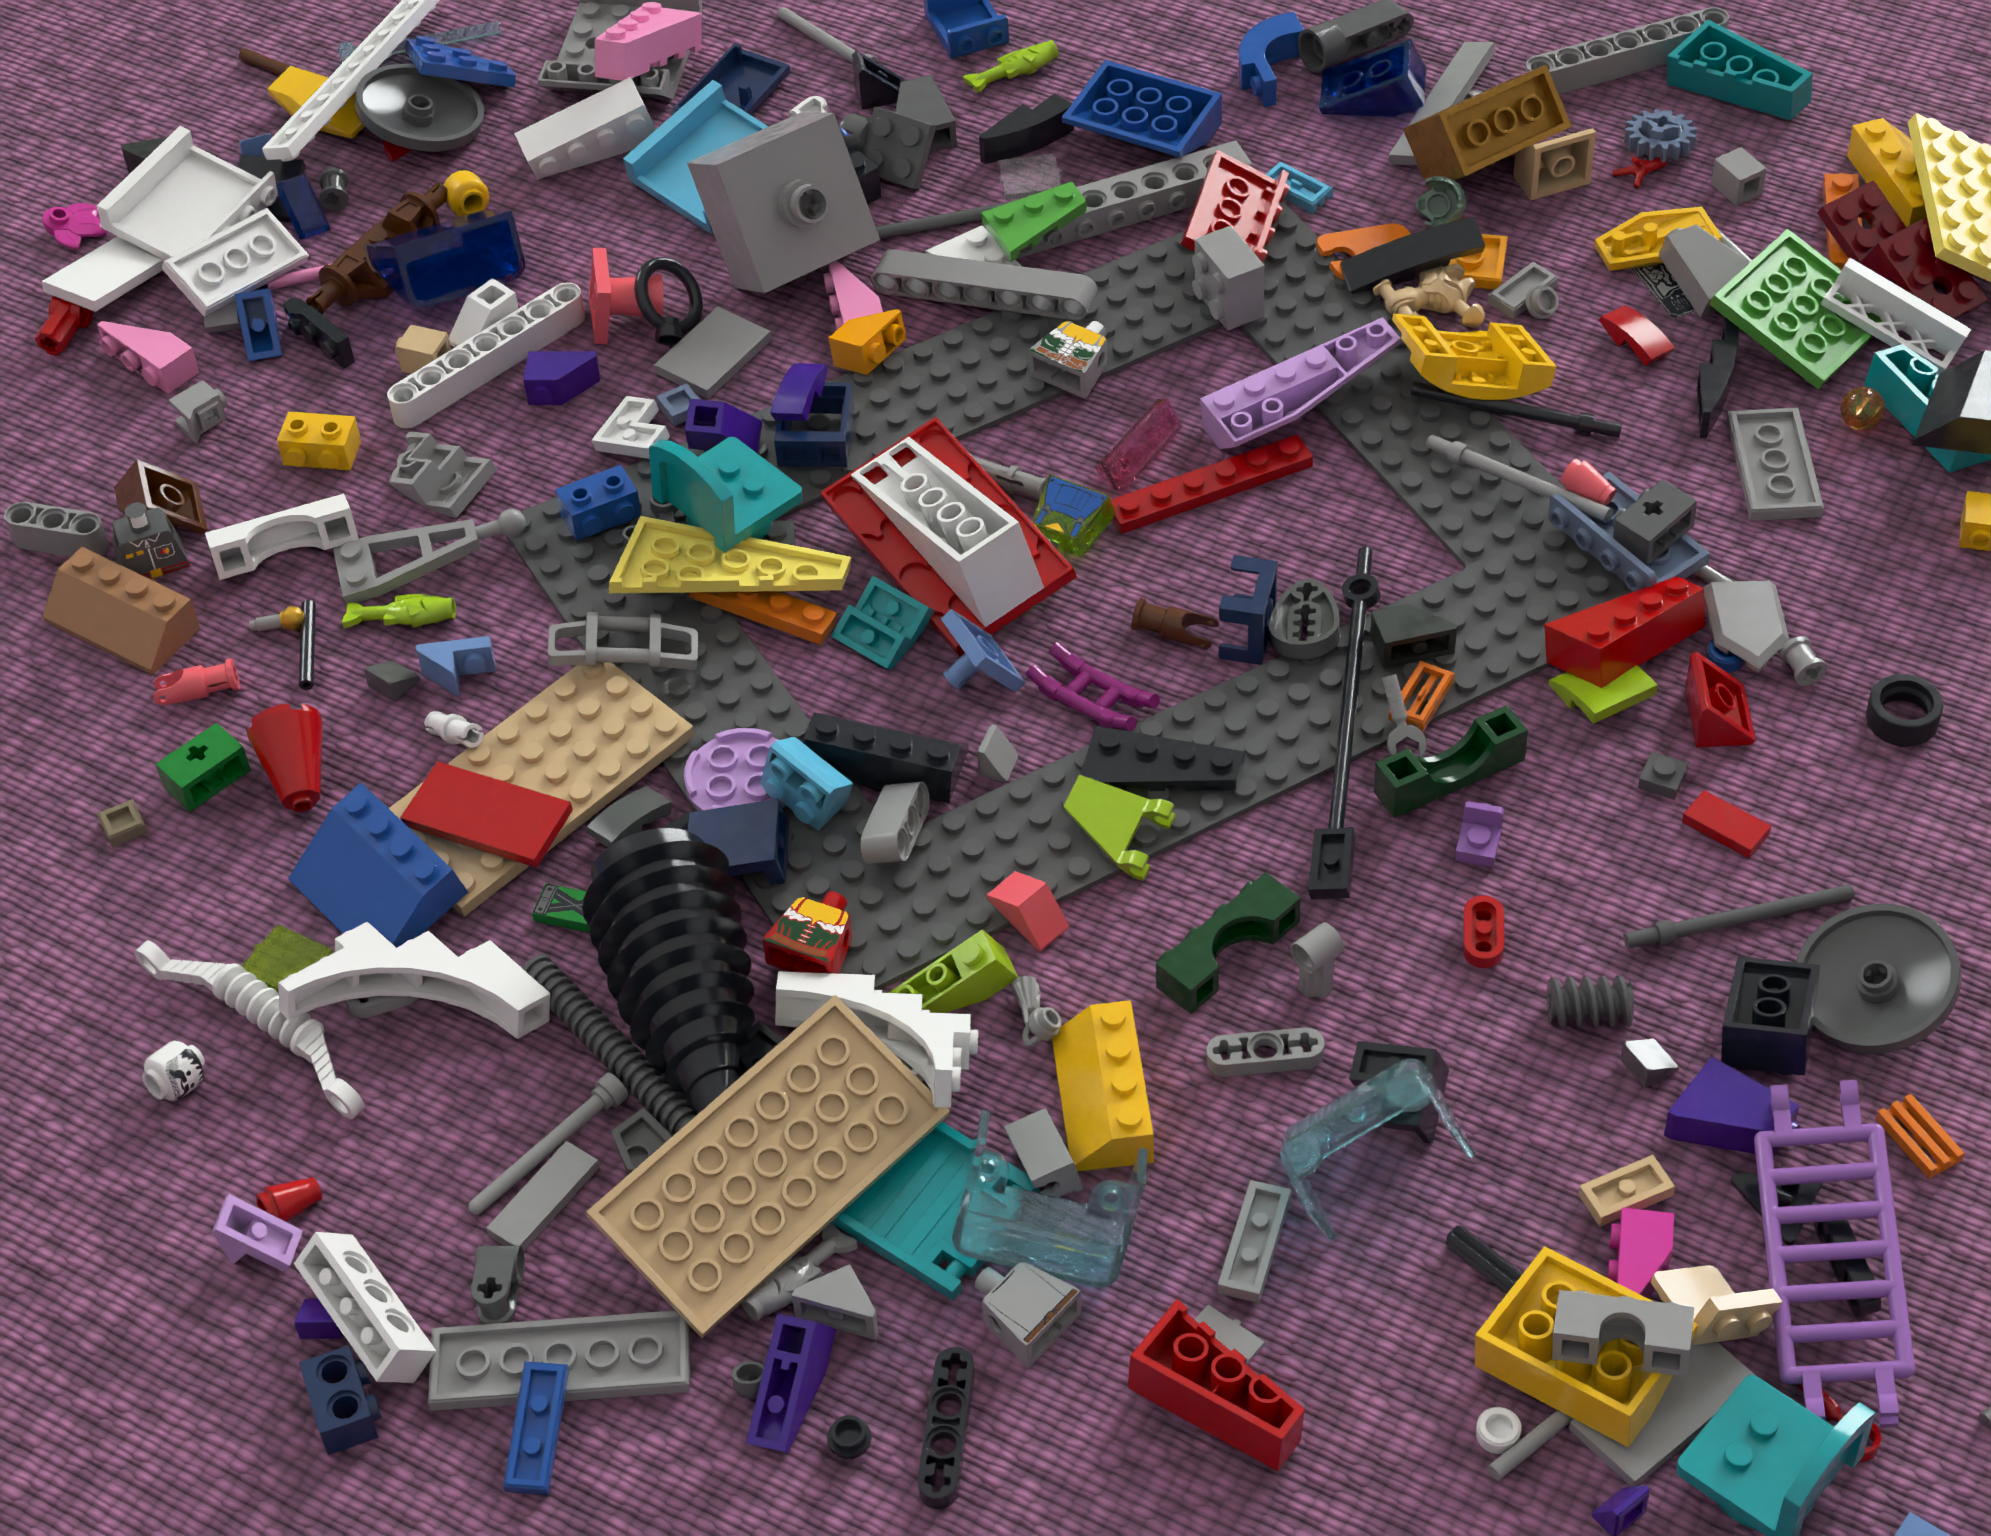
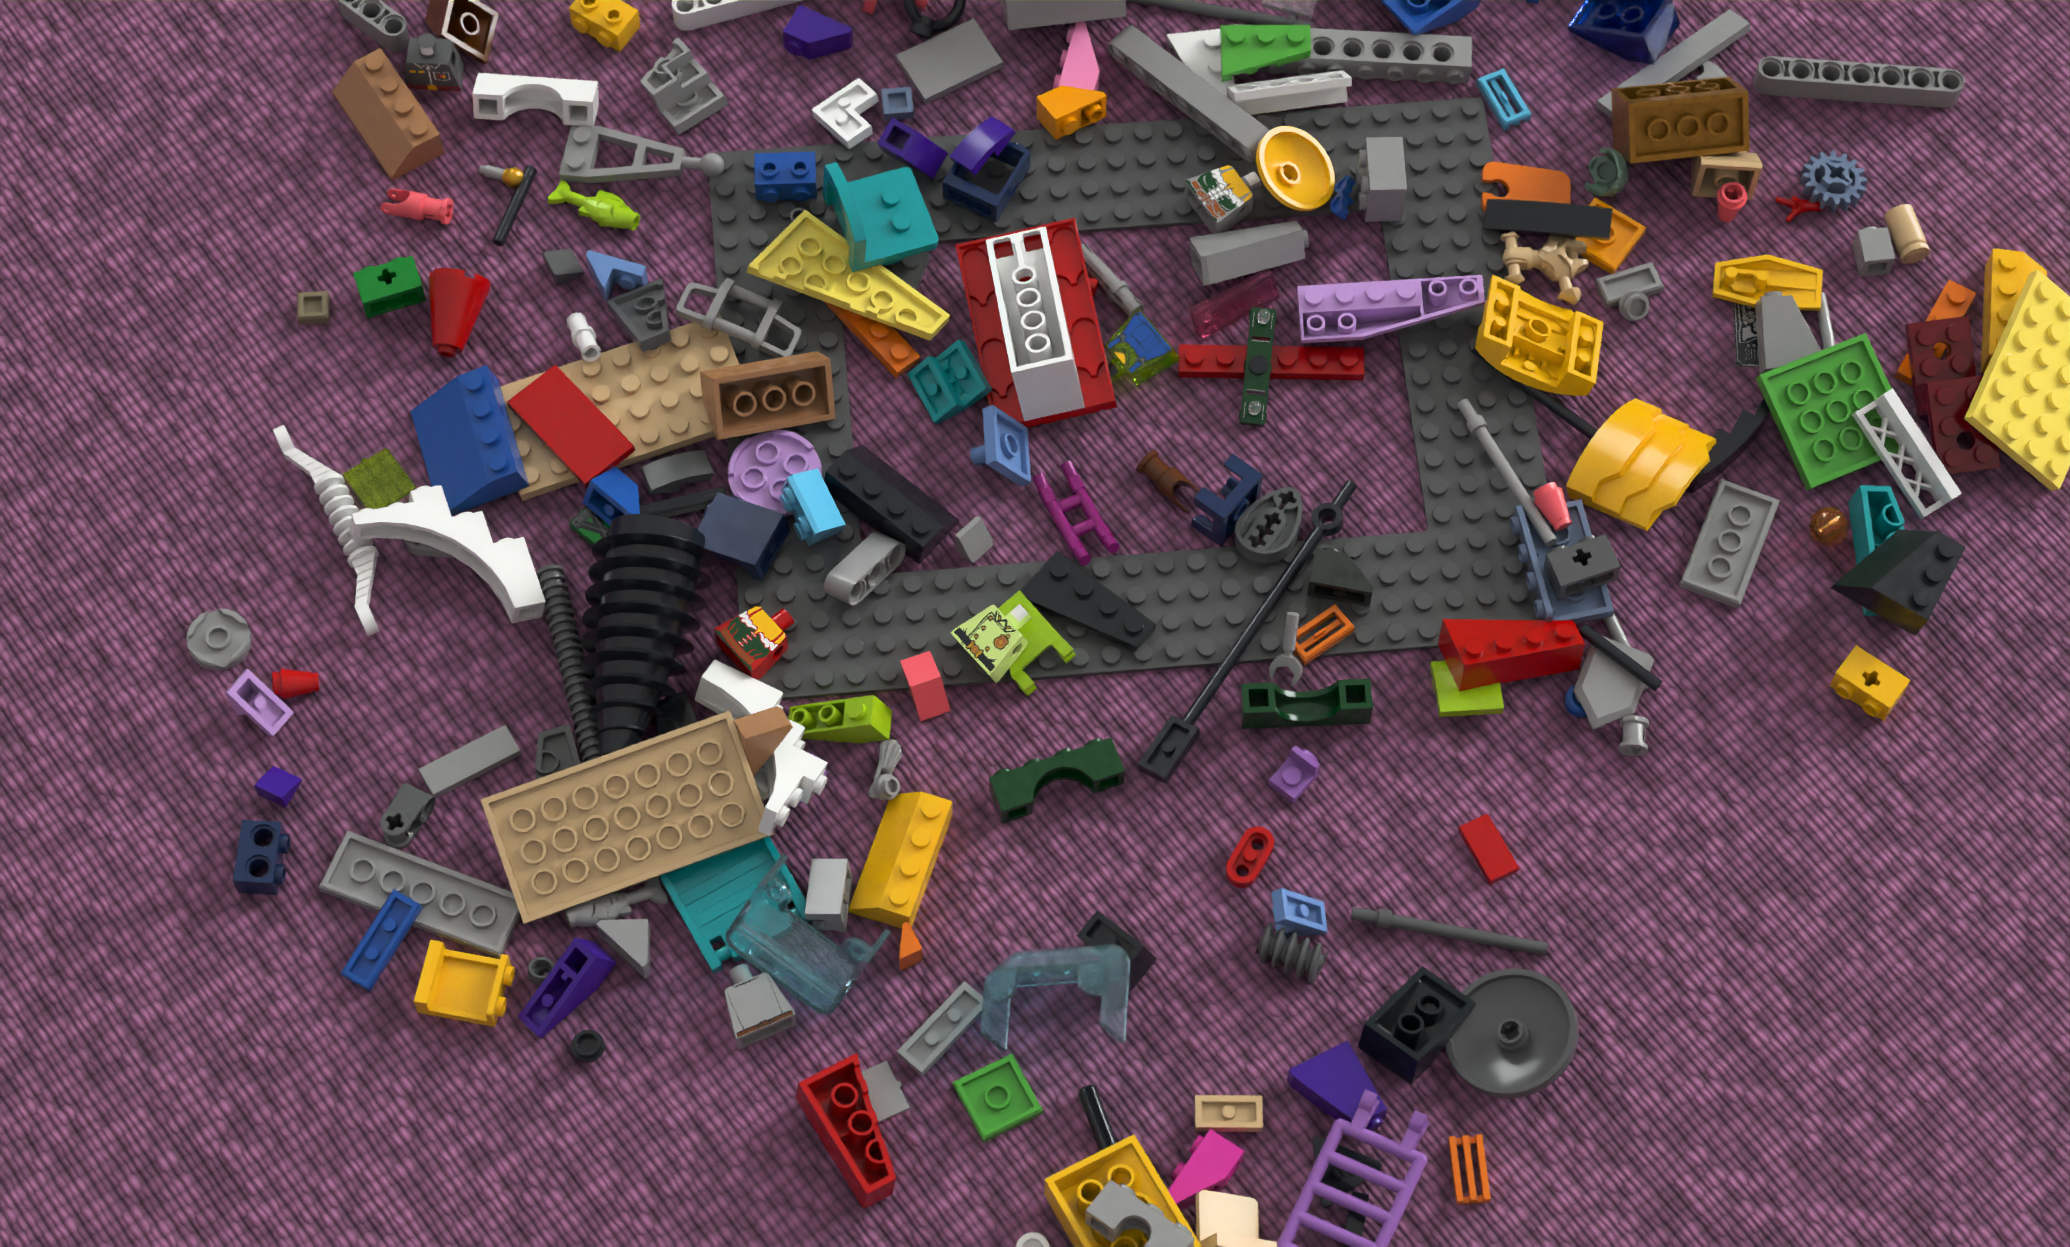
camera: 20 degrees right, 15 degrees up
(171, 1194) = (219, 639): none -> light grey tile
(173, 1071) = (259, 542): white head -> none
(365, 1307) = (306, 796): white brick -> none
(511, 683) = (643, 315): none -> dark grey wing
(567, 864) = (612, 495): none -> blue slope
(607, 1093) = (549, 700): light grey piece -> none
(664, 1436) = (463, 985): none -> yellow panel
(696, 697) = (768, 394): none -> medium nougat slope
(885, 1007) = (762, 734): none -> medium nougat slope
(949, 1427) = (659, 1070): black beam -> none
(1079, 829) = (994, 638): none -> yellowish green torso
(1092, 246) = (1291, 92): none -> white fence
(1125, 392) = (1246, 251): none -> light grey slope
(1133, 303) = (1295, 168): none -> yellow dish
(1166, 1172) = (910, 948): none -> orange slope
(1194, 320) = (1341, 200): none -> blue piece
(1202, 485) = (1257, 366): none -> dark green piece
(1237, 198) = (1430, 110): bracket -> none
(1277, 1040) = (1010, 881): light grey beam -> none
(1315, 958) = (1106, 828): light grey piece -> none
(1358, 1288) = (997, 1098): none -> bright green tile
(1569, 958) = (1298, 913): none -> medium blue slope
(1576, 182) = (1730, 200): none -> coral cone
(1643, 337) = (1693, 372): red slope -> none
(1646, 423) = (1638, 464): none -> yellow slope
(1647, 1061) = (1309, 1017): slope -> none
(1663, 775) = (1466, 785): dark grey plate -> none
(1717, 705) = (1544, 746): red slope -> none
(1738, 72) = (1936, 144): teal wedge -> none
(1747, 592) = (1620, 657): none -> black piece
(1762, 148) = (1907, 234): none -> tan piece
(1910, 689) = (1689, 792): black tyre -> none

